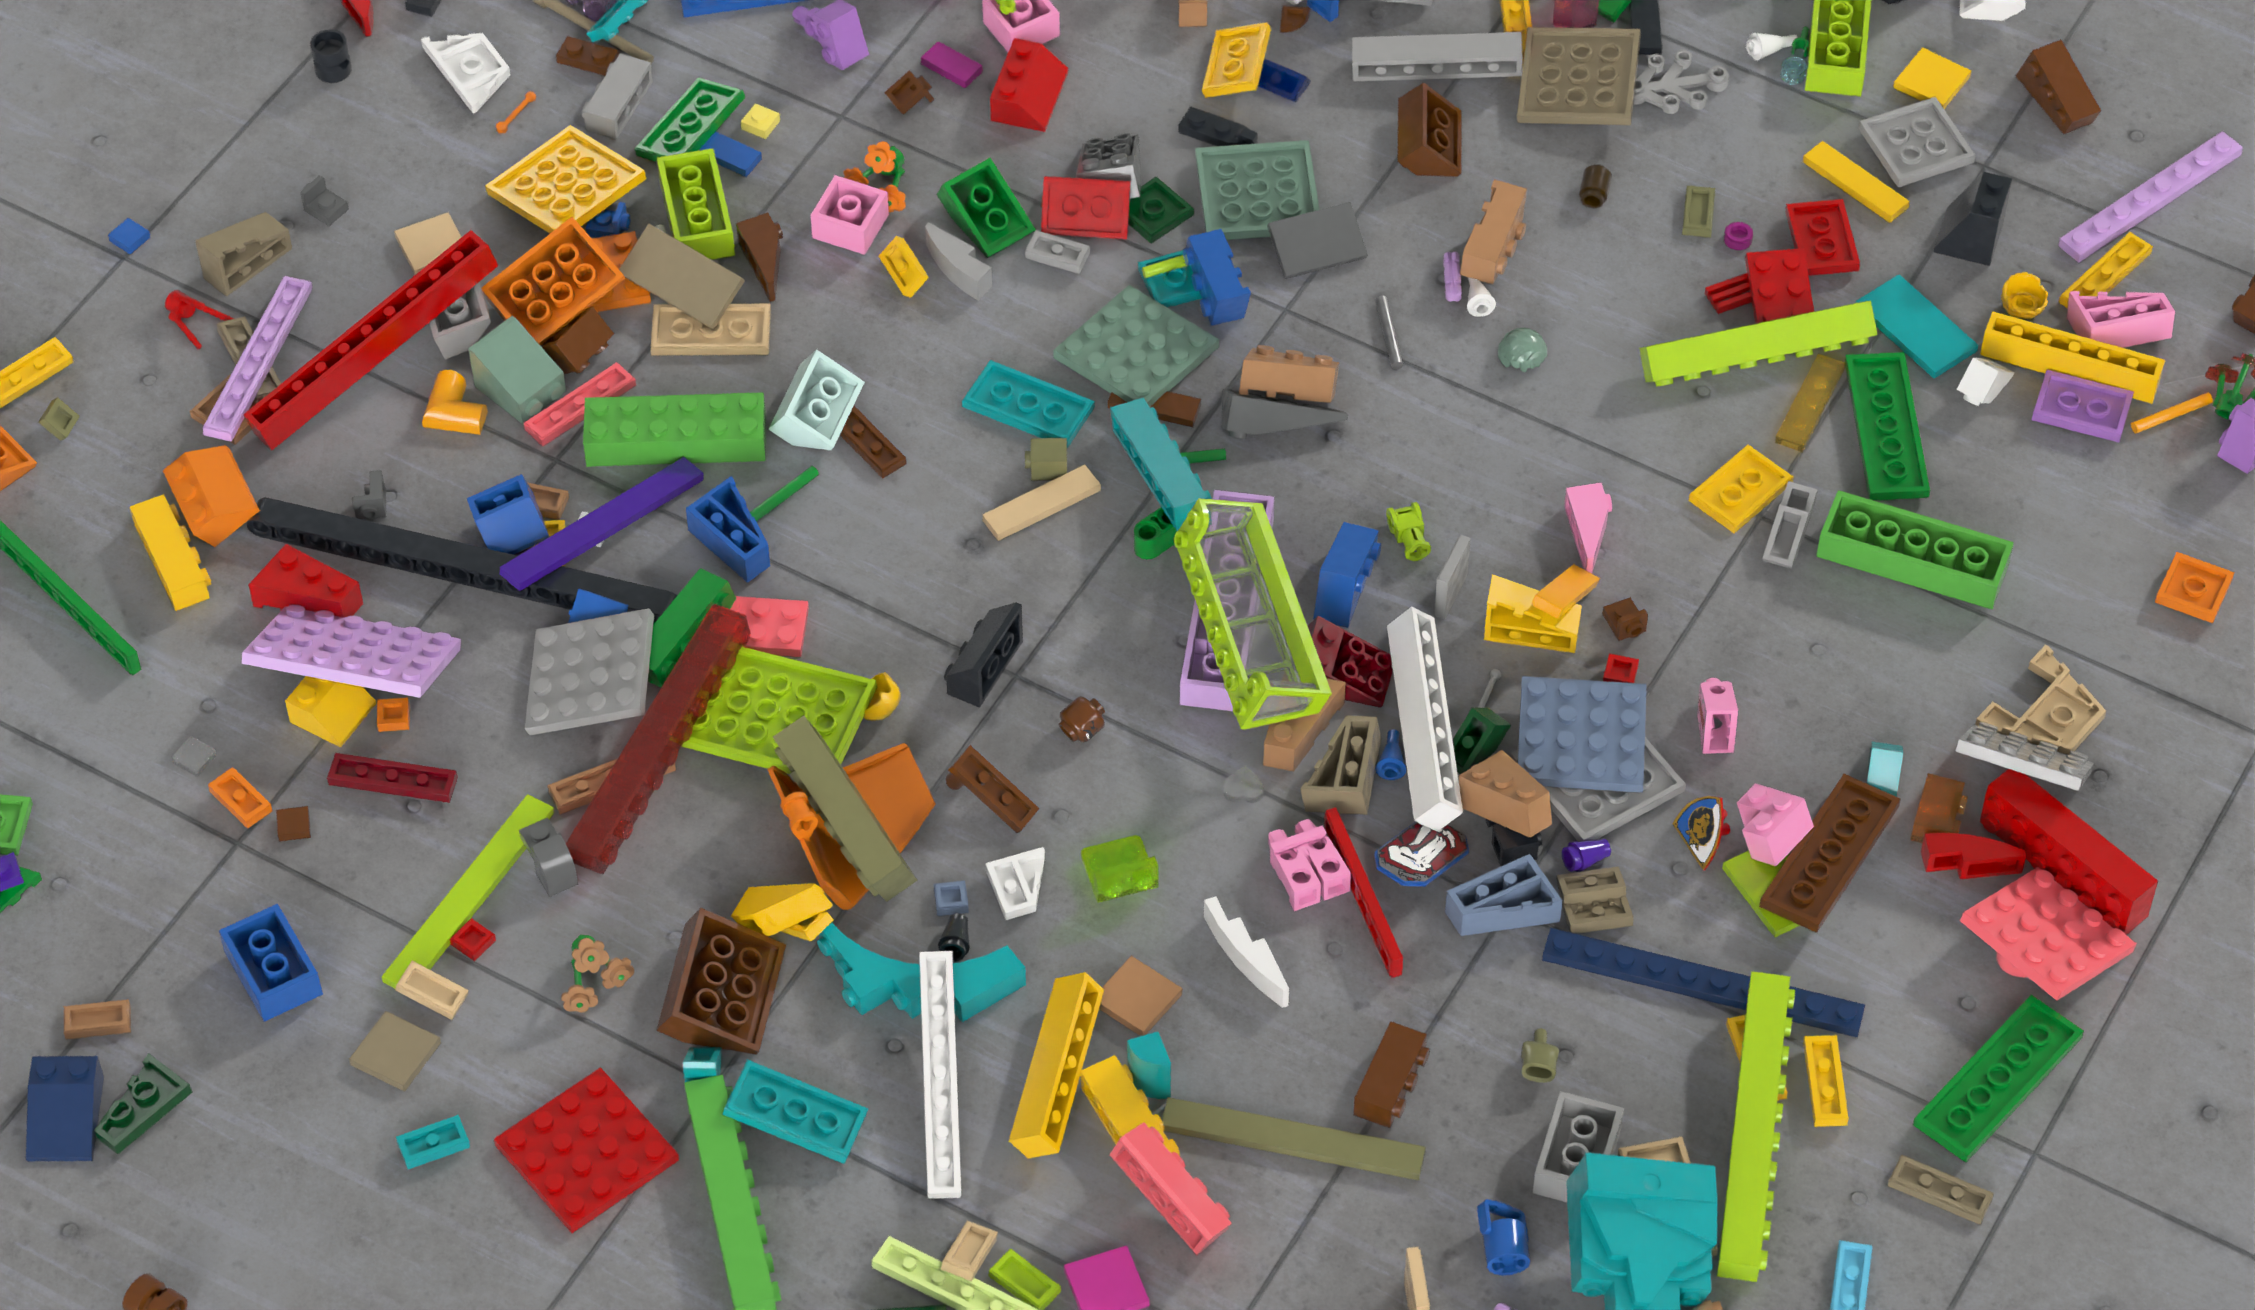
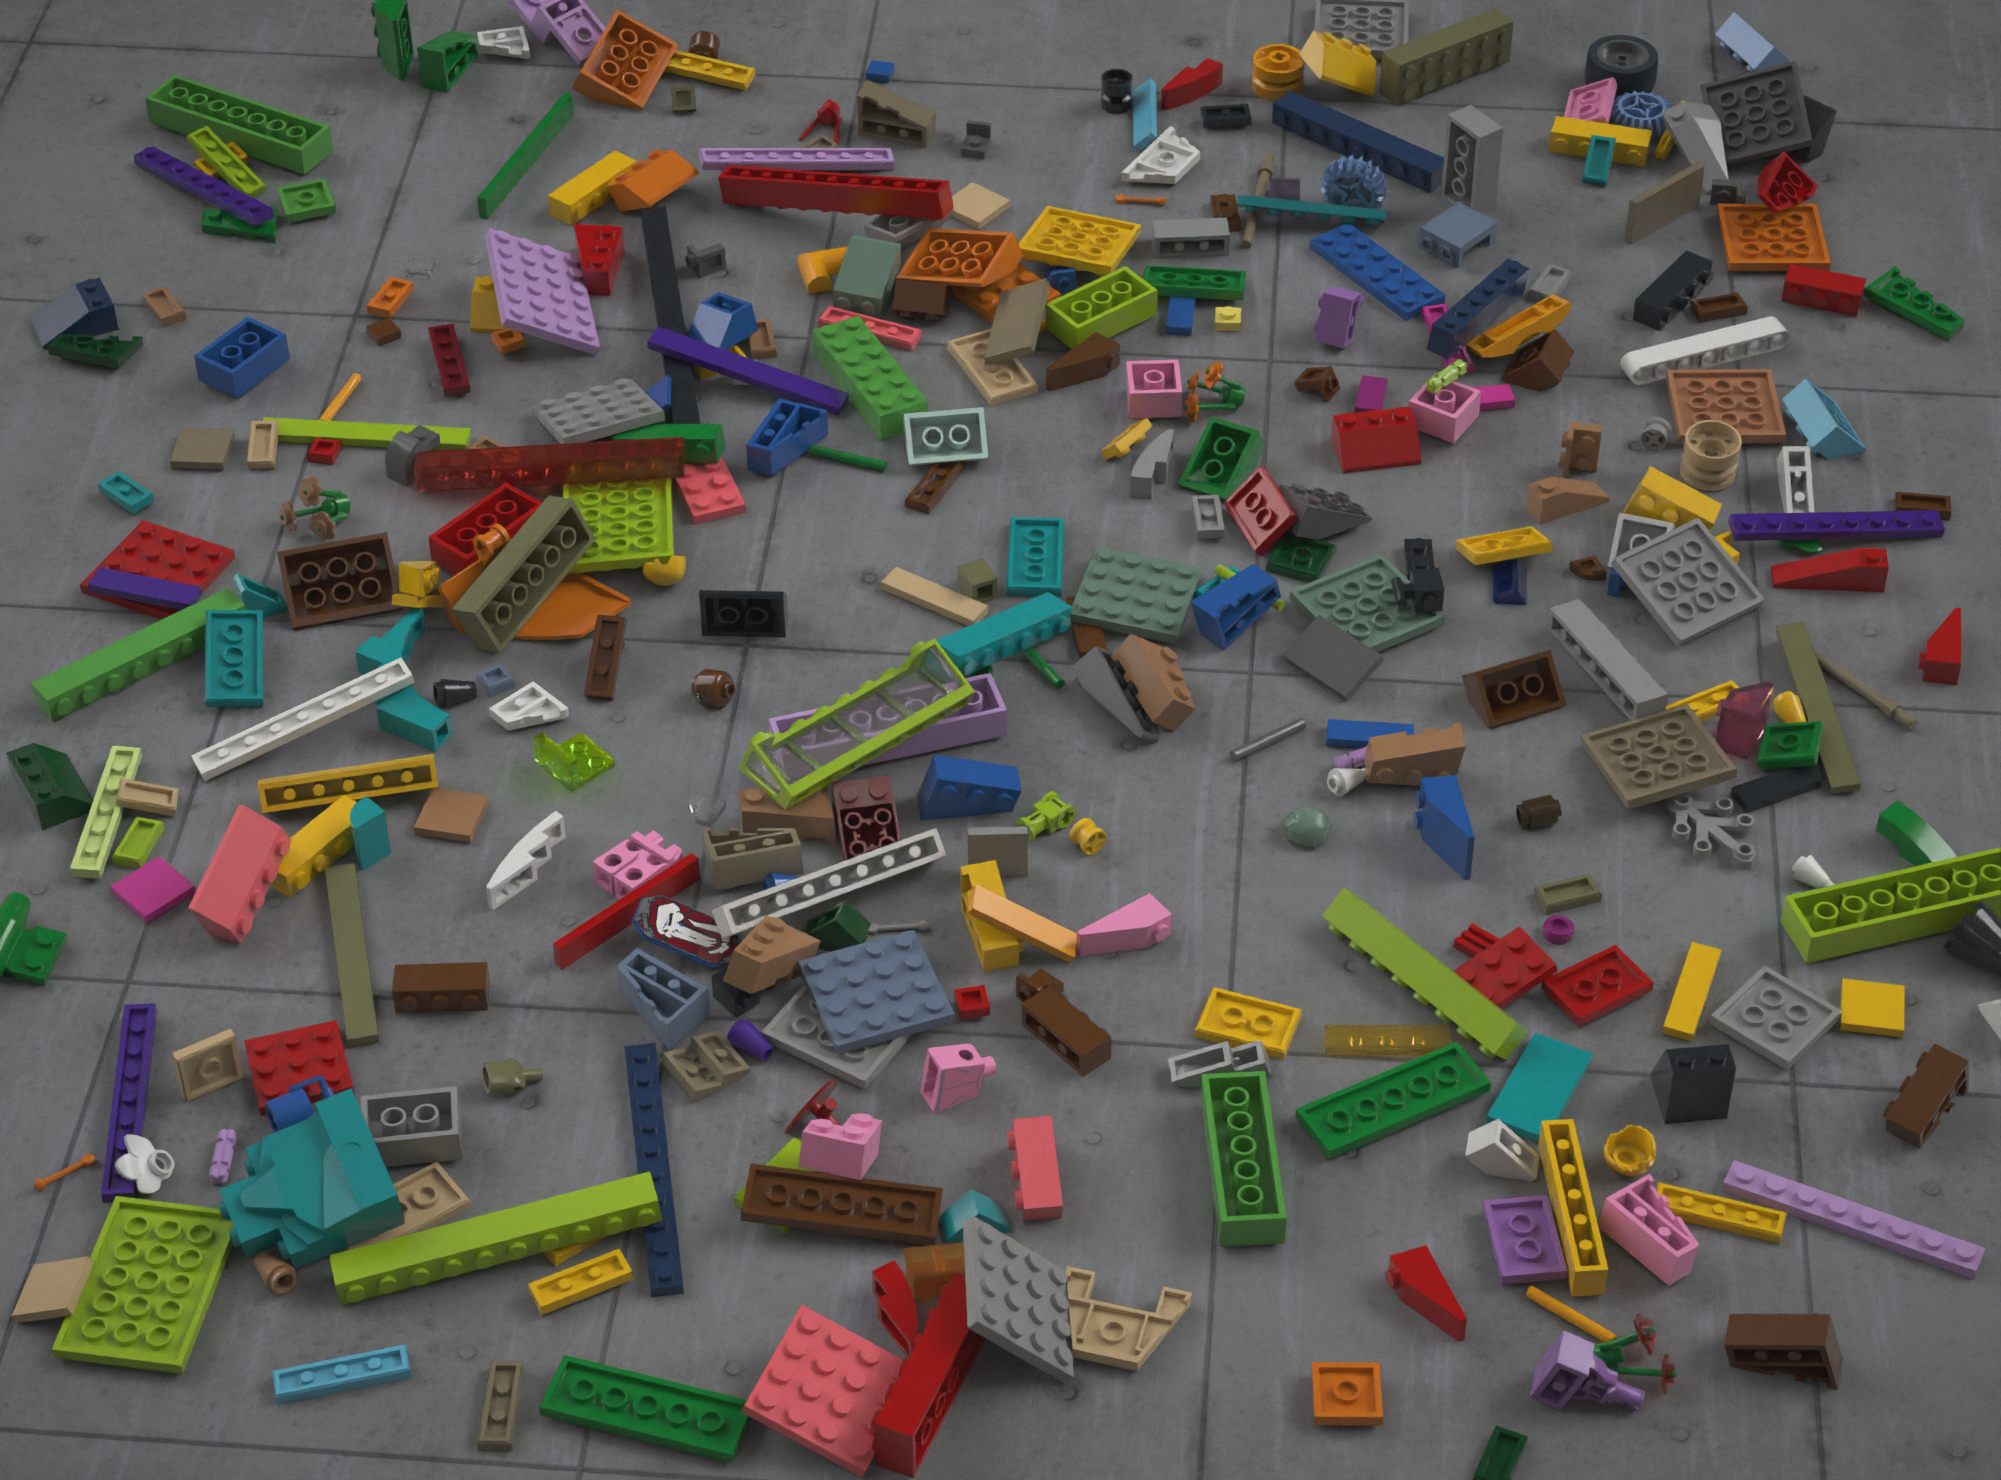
camera: 65 degrees right, 10 degrees down
(386, 52) = (1144, 115): none -> medium azure tile
(389, 898) = (341, 397): none -> light orange bar
(633, 1162) = (144, 589): none -> dark purple tile
(730, 828) = (453, 543): none -> red brick
(1279, 137) = (1424, 589): none -> black brick
(1425, 259) = (1357, 733): none -> blue tile
(1437, 1220) = (296, 1056): none -> red plate
(1453, 508) = (1088, 836): none -> yellow wheel
(1594, 248) = (1445, 822): none -> blue slope
(1695, 616) = (1066, 1031): none -> reddish brown brick
(1856, 697) = (1035, 1168): none -> coral wedge
(2109, 490) = (1425, 1290): none -> red slope

